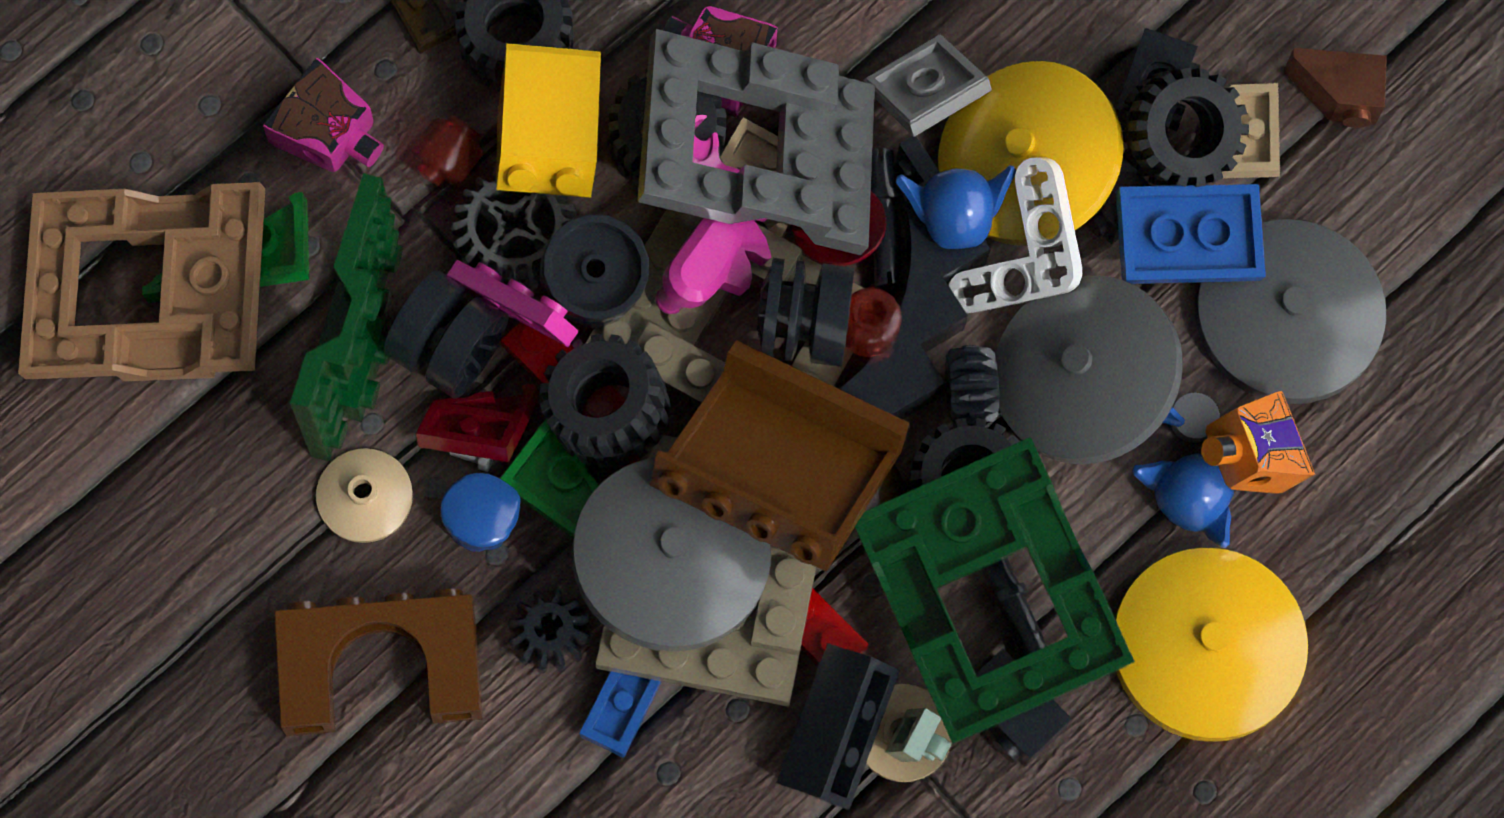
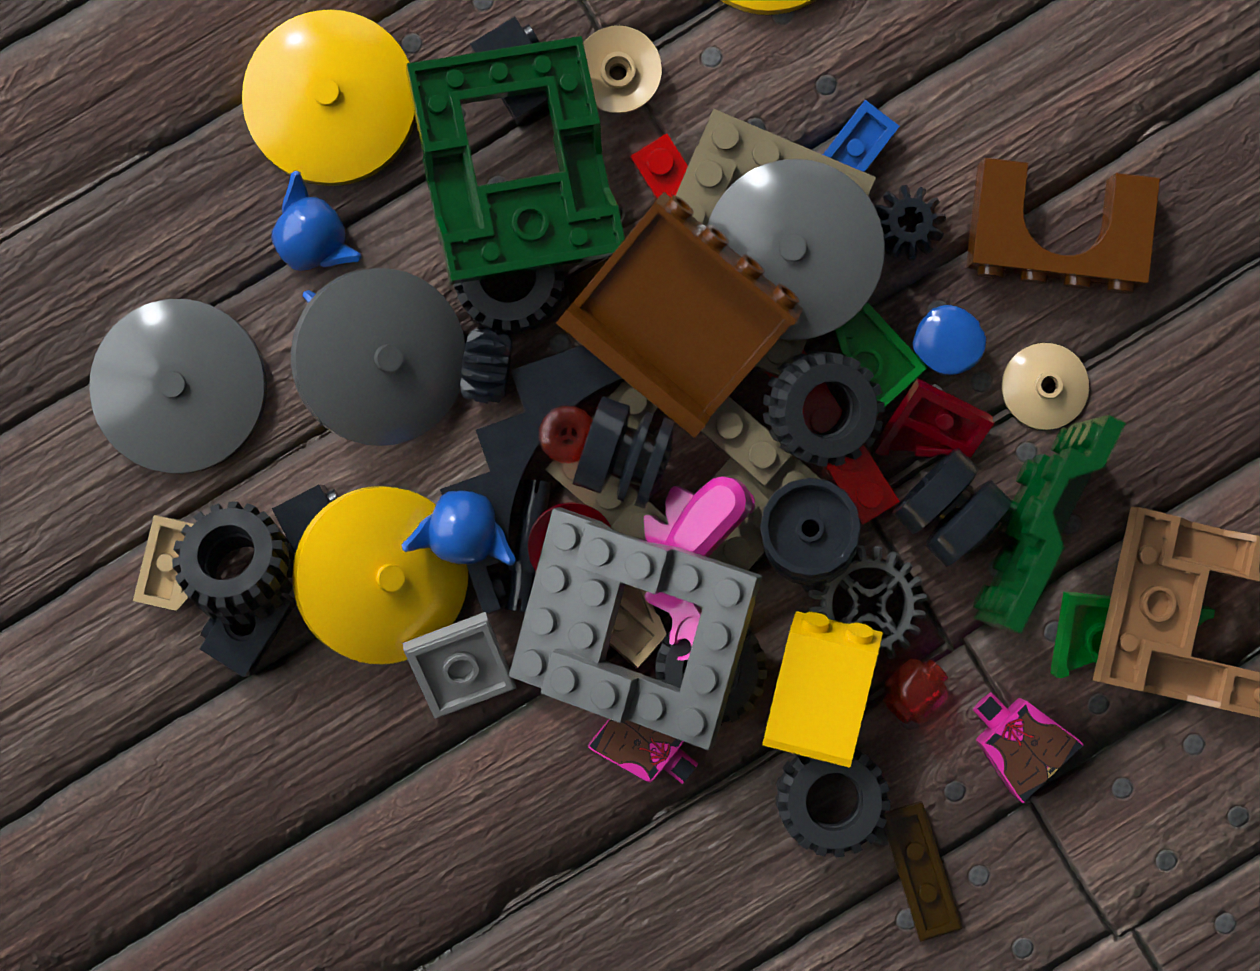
camera: 165 degrees left, 15 degrees up
(515, 300) = (888, 517): dark pink plate -> none
(838, 726) = (676, 79): black brick -> none
(917, 738) = (609, 53): sand green tile -> none
(1010, 598) = (491, 143): black pin -> none
(1037, 265) = (397, 466): white beam -> none
(1190, 234) = (253, 462): blue plate -> none
(1198, 413) = (287, 303): light grey tile -> none
(1258, 447) = (243, 258): orange torso -> none
(1341, 84) = (72, 589): copper slope -> none

